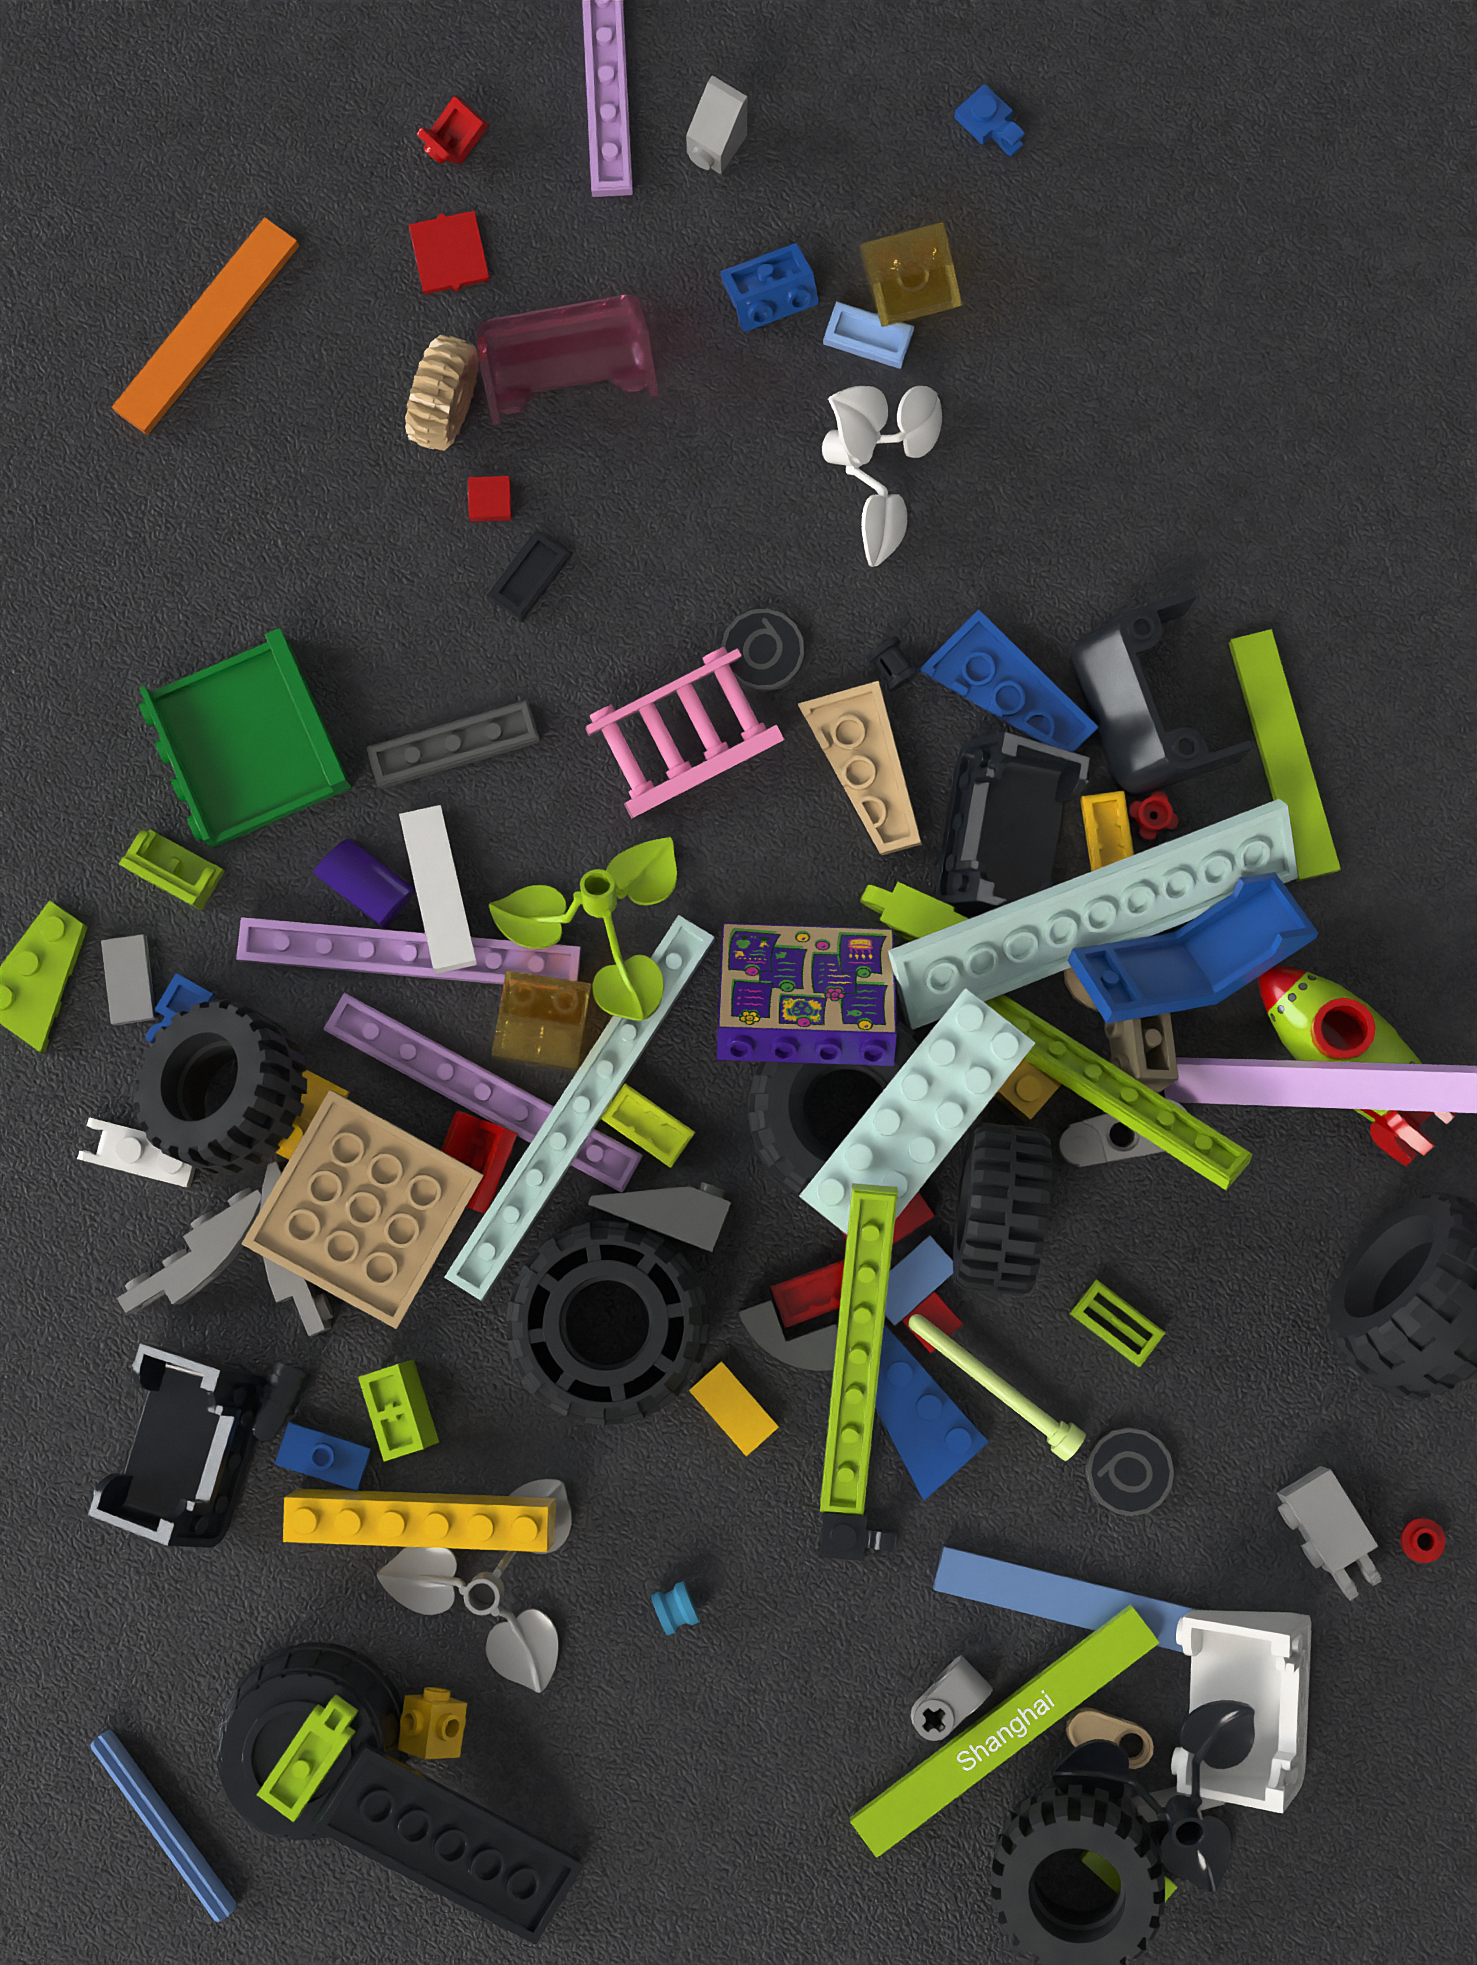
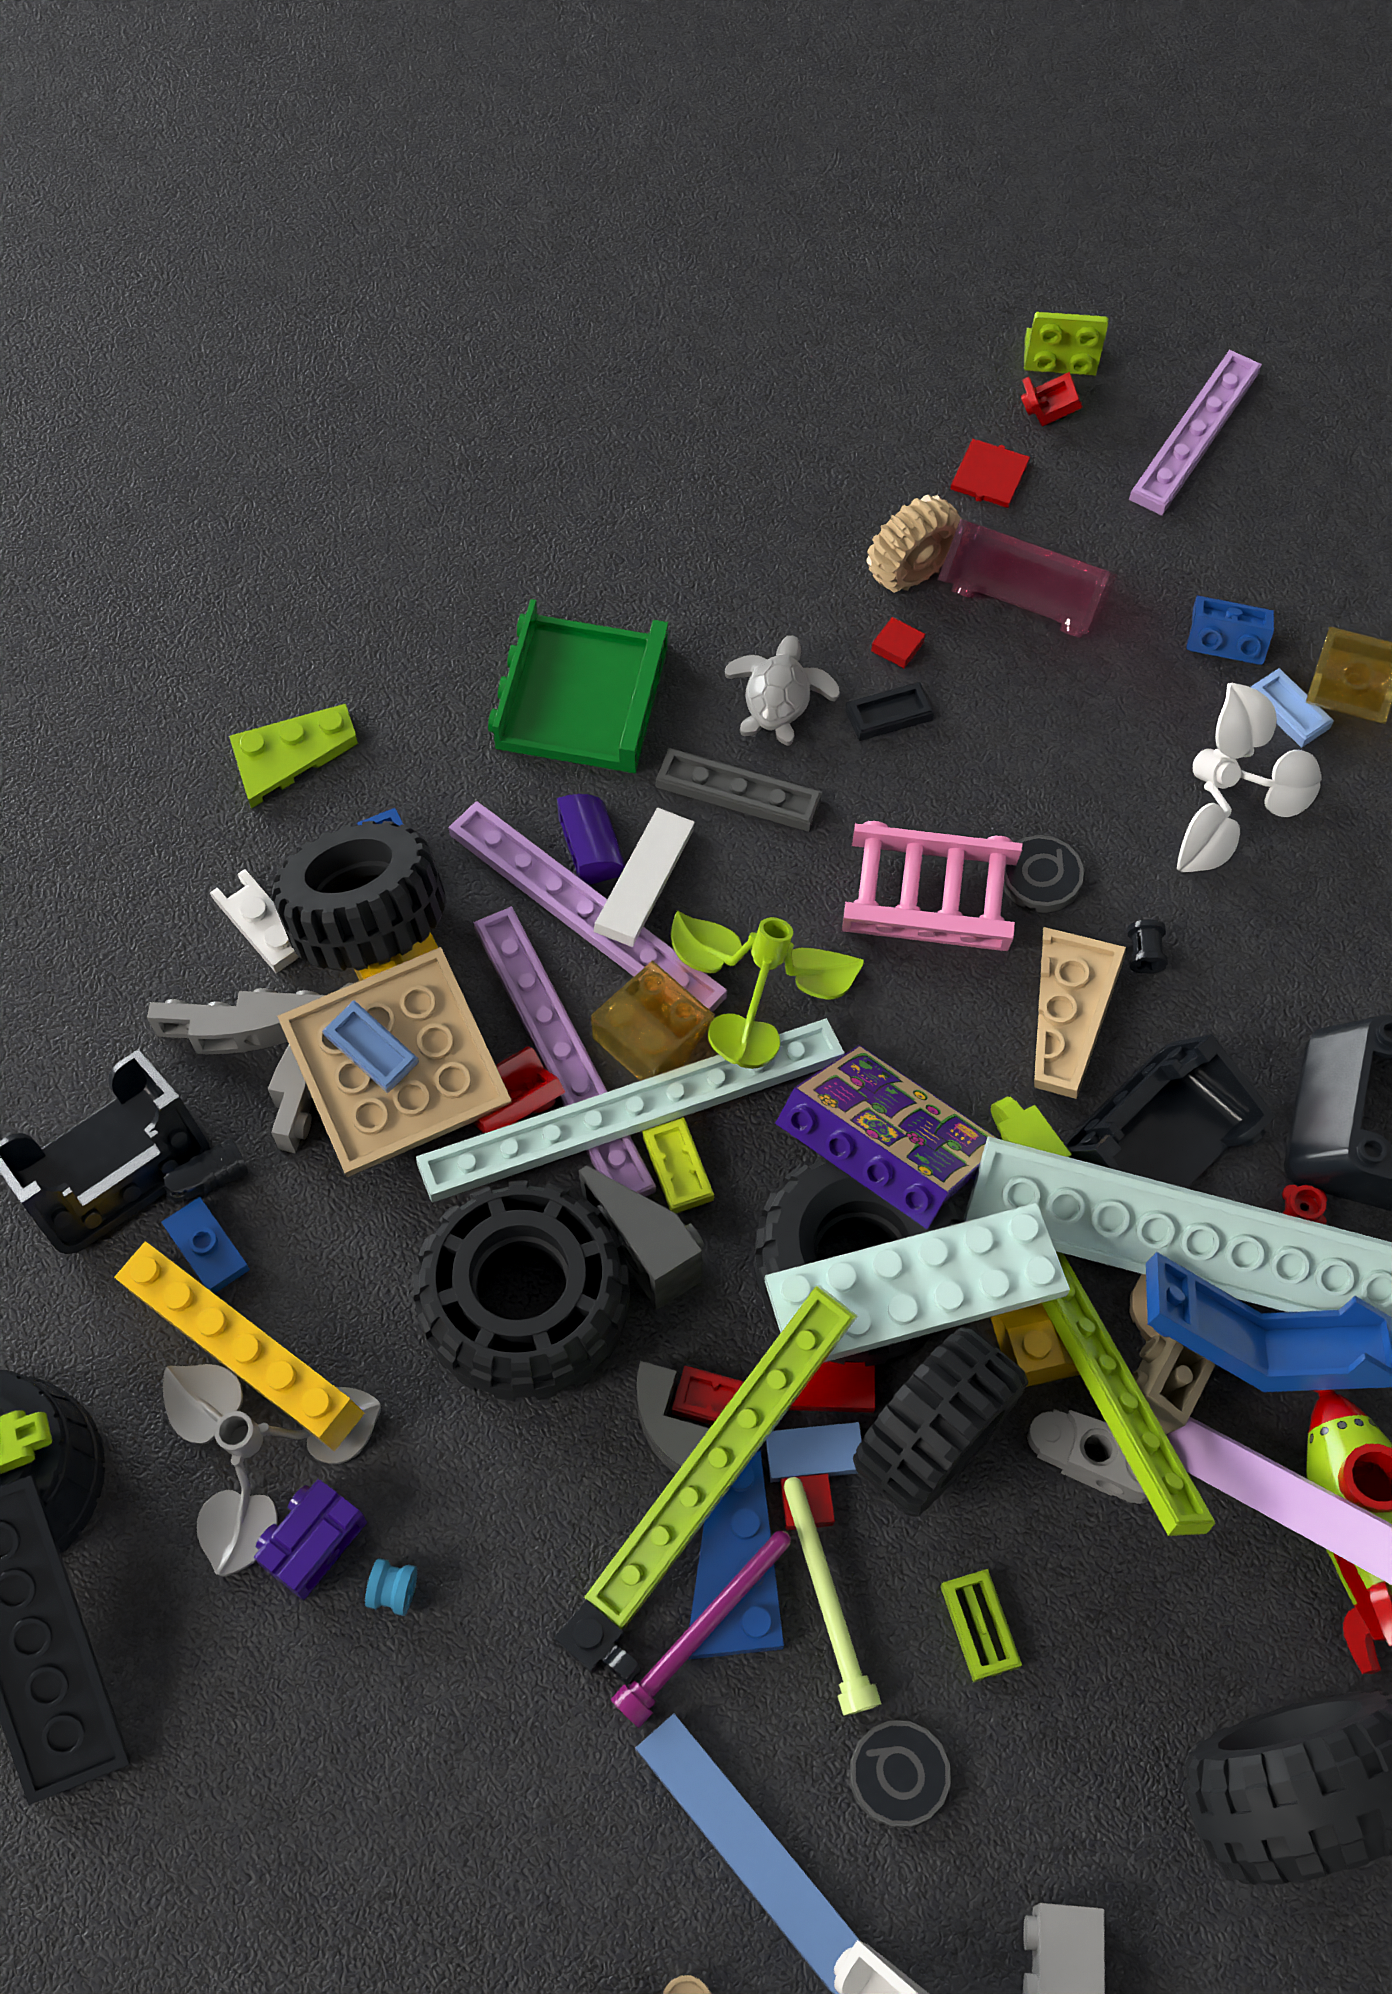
camera: 35 degrees right, 20 degrees down
(128, 979) = (356, 793): light grey tile -> none
(172, 868) = (452, 739): lime hinge -> none
(205, 326) = (770, 417): orange tile -> none
(338, 1215) = (370, 1046): none -> medium blue tile
(398, 1410) = (295, 1247): lime hinge -> none
(421, 623) = (779, 689): none -> light grey animal
(427, 63) = (1065, 343): none -> lime bracket
(432, 1724) = (106, 1529): yellow brick -> none
(588, 1618) = (309, 1538): none -> dark purple brick
(717, 126) = (1264, 497): light grey slope -> none
(733, 1408) = (575, 1451): yellow tile -> none
(912, 1557) = (638, 1697): none -> magenta piece
(957, 1692) = (587, 1862): light grey piece -> none
(1002, 680) = (1233, 1006): blue wing -> none
(1003, 1731) = (605, 1937): lime tile -> none
(1106, 828) = (1257, 1180): yellow plate -> none

